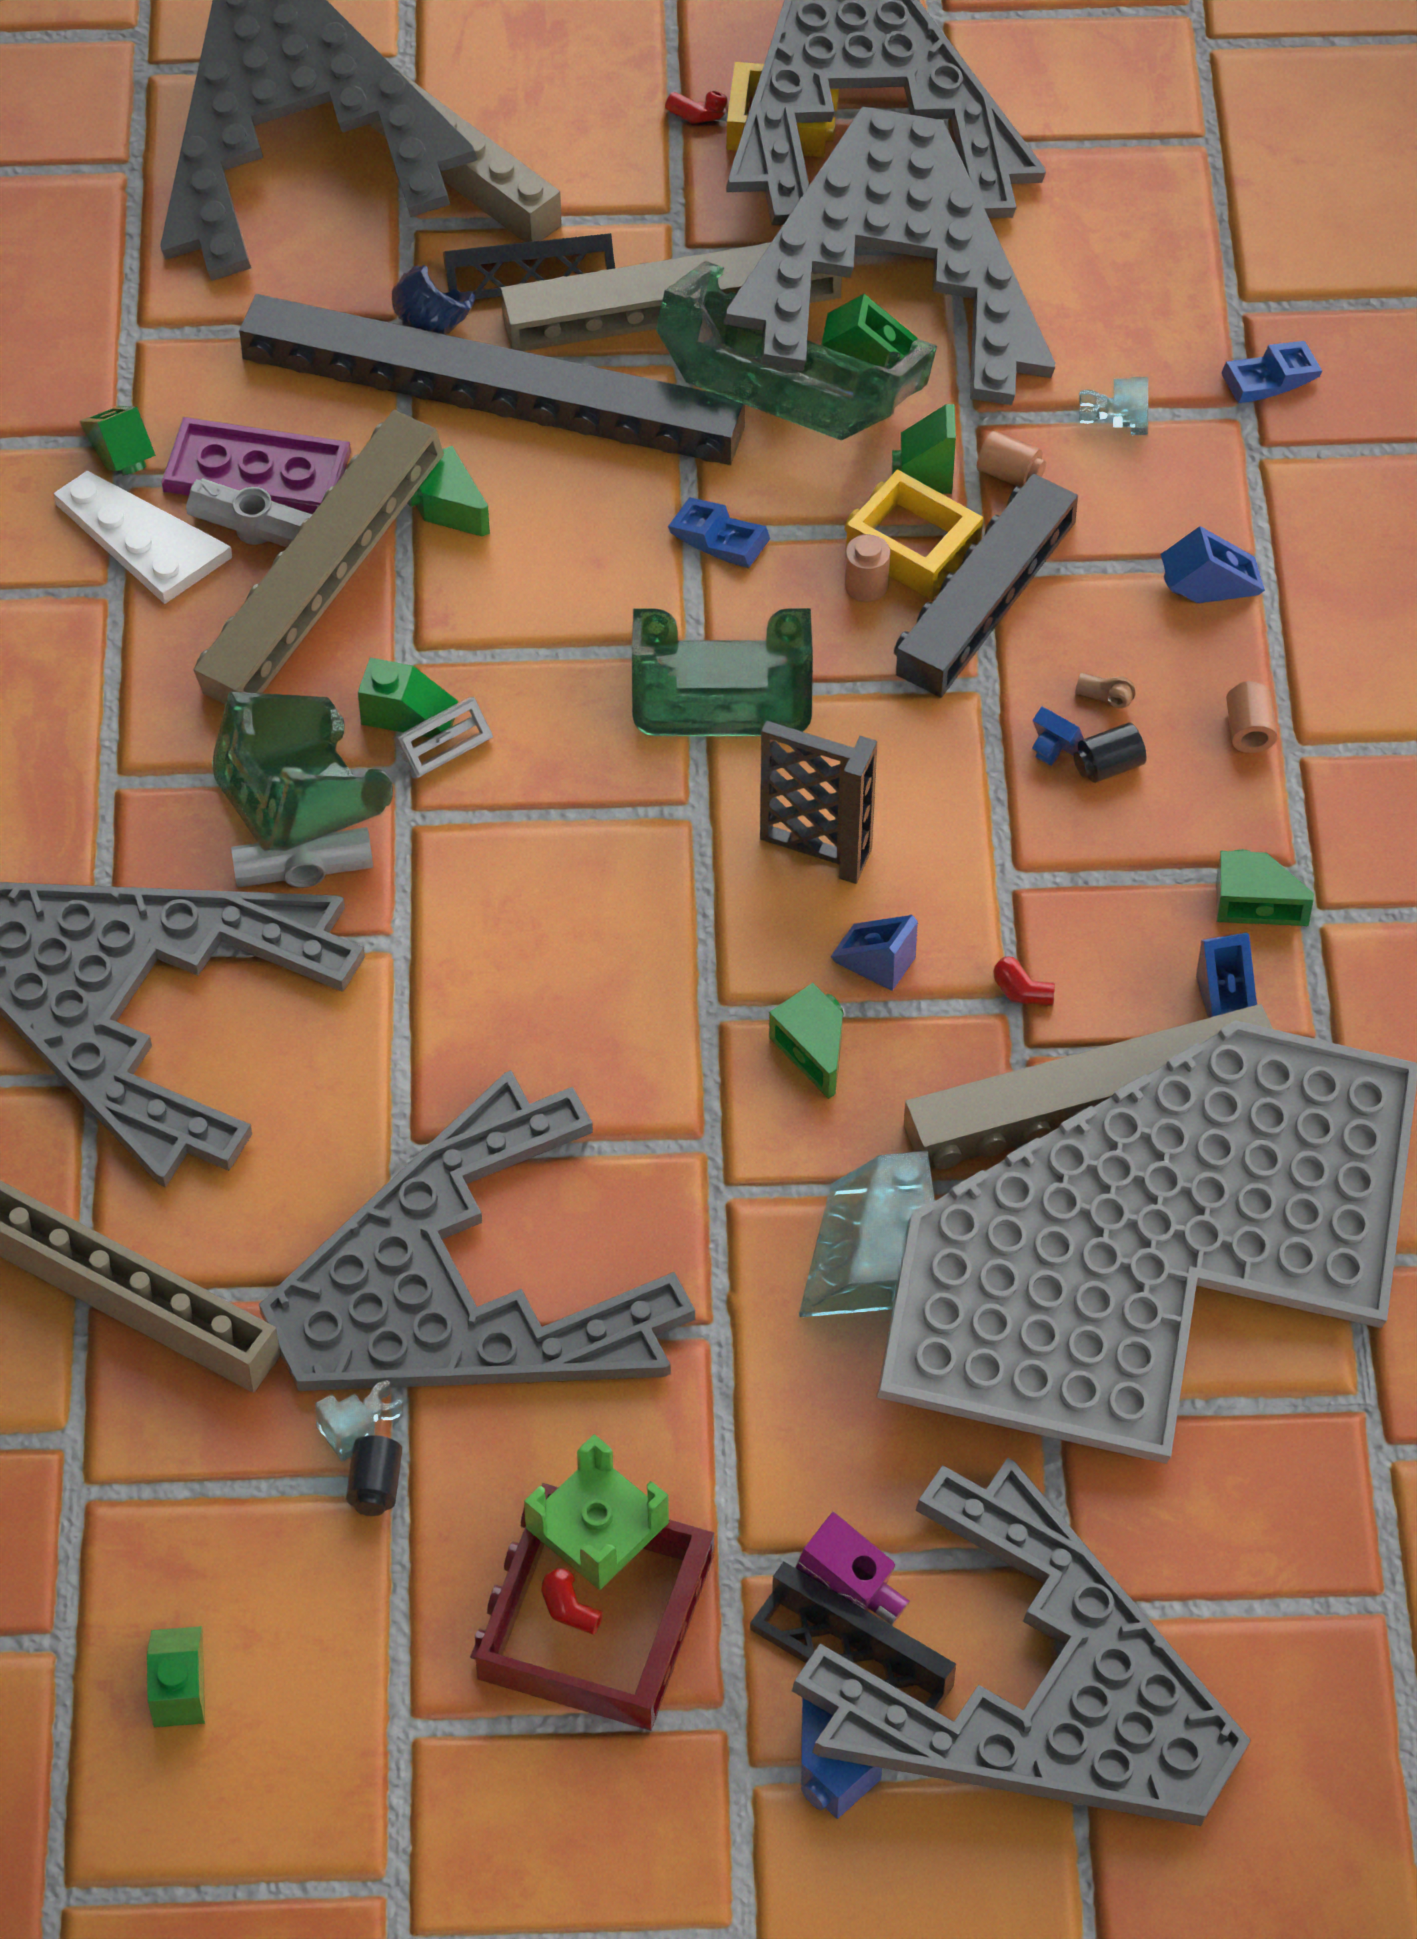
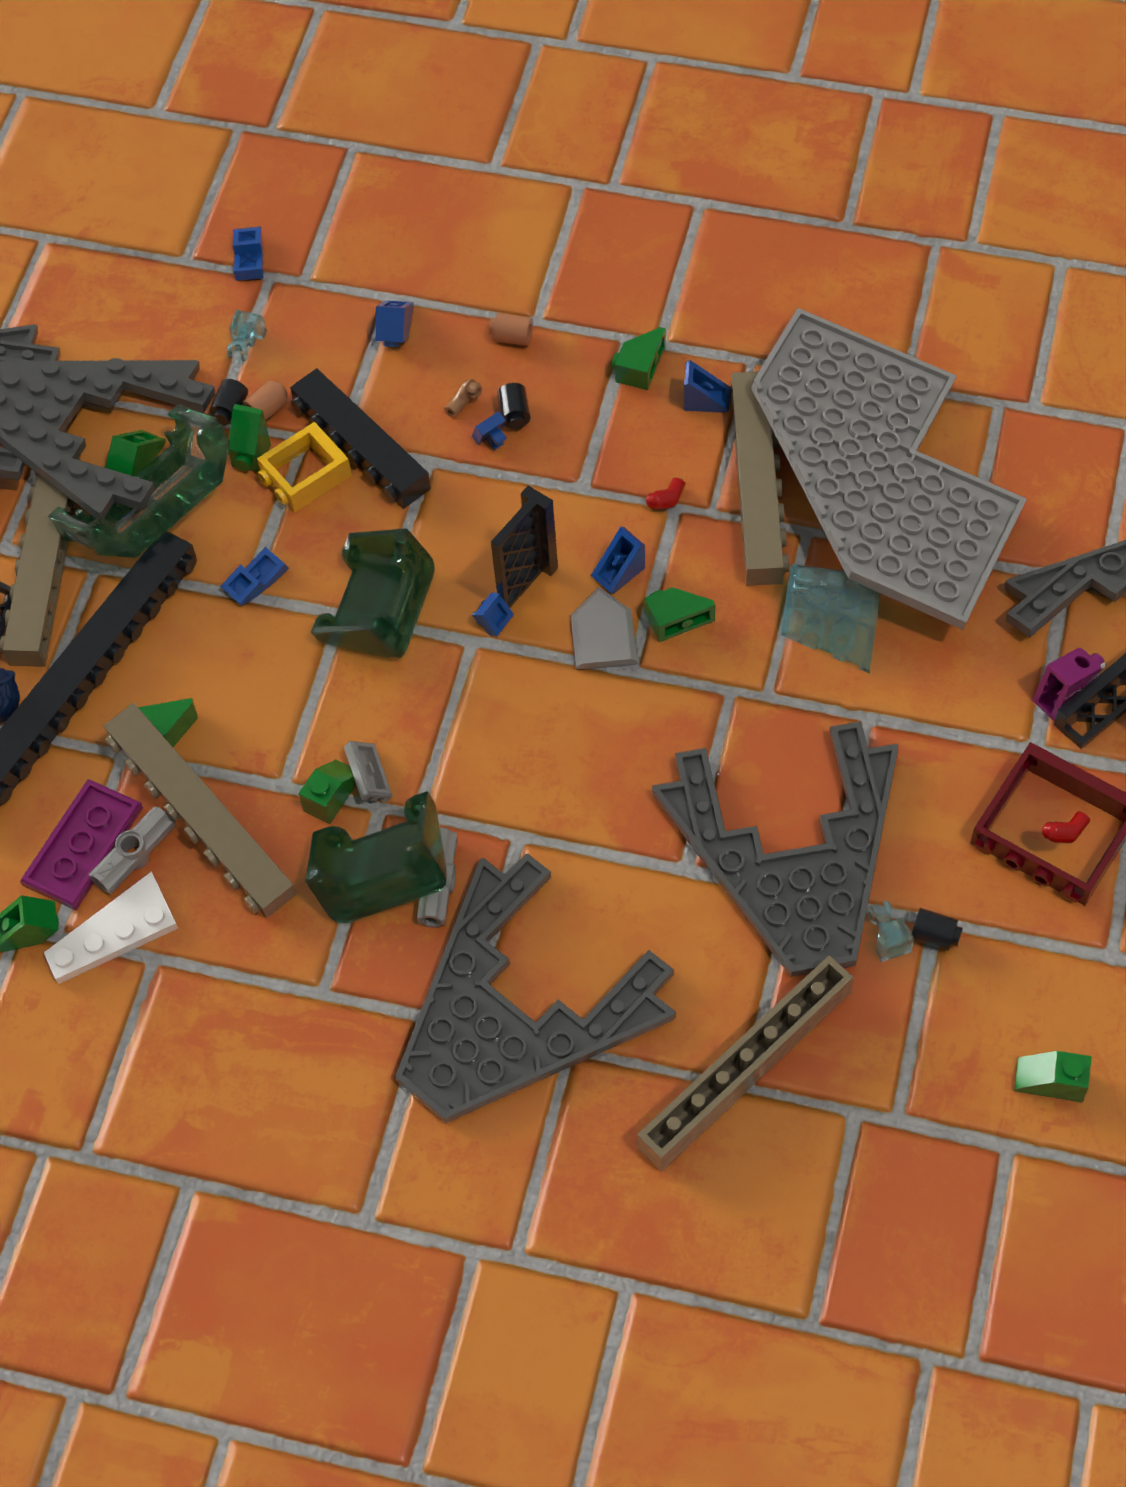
camera: 70 degrees left, 5 degrees up
(597, 1515) = (1013, 798): bright green panel -> none
(737, 817) = (493, 614): none -> blue tile
(760, 961) = (603, 632): none -> light grey tile
(867, 568) = (323, 497): nougat brick -> none
(991, 414) = (228, 394): none -> black brick

